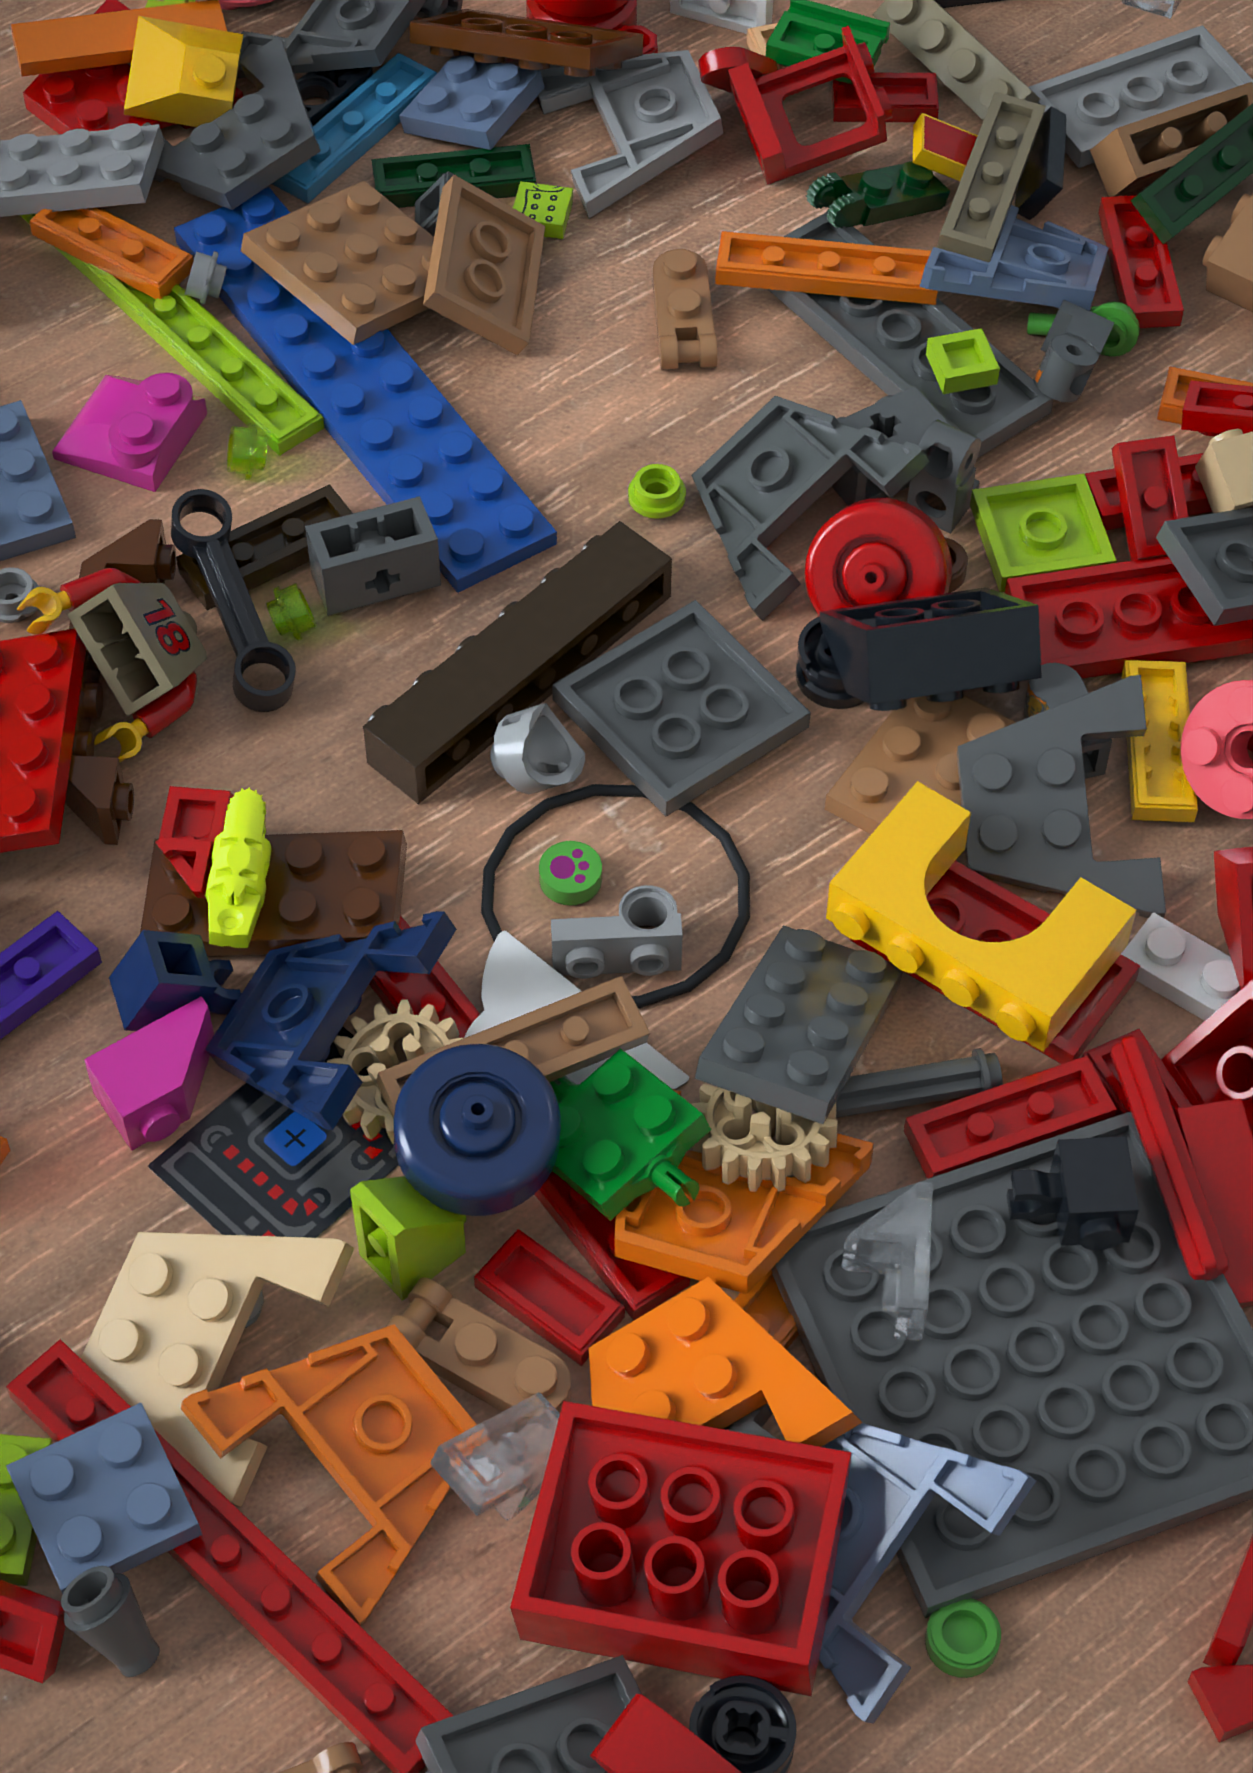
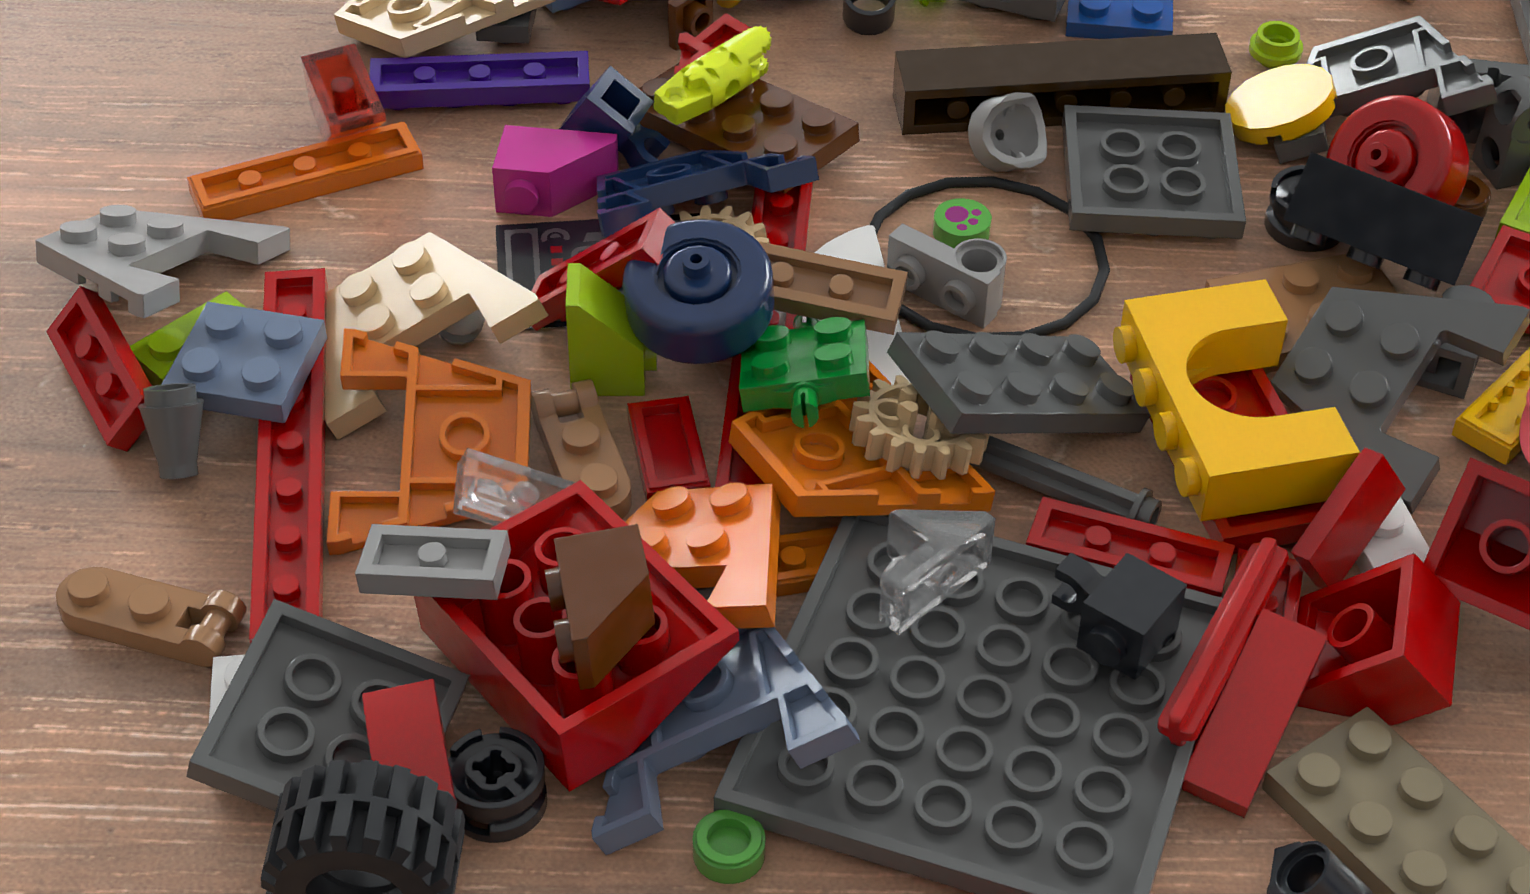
camera: 40 degrees right, 10 degrees down
(360, 1148) = (606, 259): none -> red plate
(543, 1586) = (433, 562): none -> light grey plate
(727, 559) = (1282, 103): none -> tile
(729, 1510) = (605, 596): none -> reddish brown slope
(1156, 972) = (1348, 519): none -> red tile

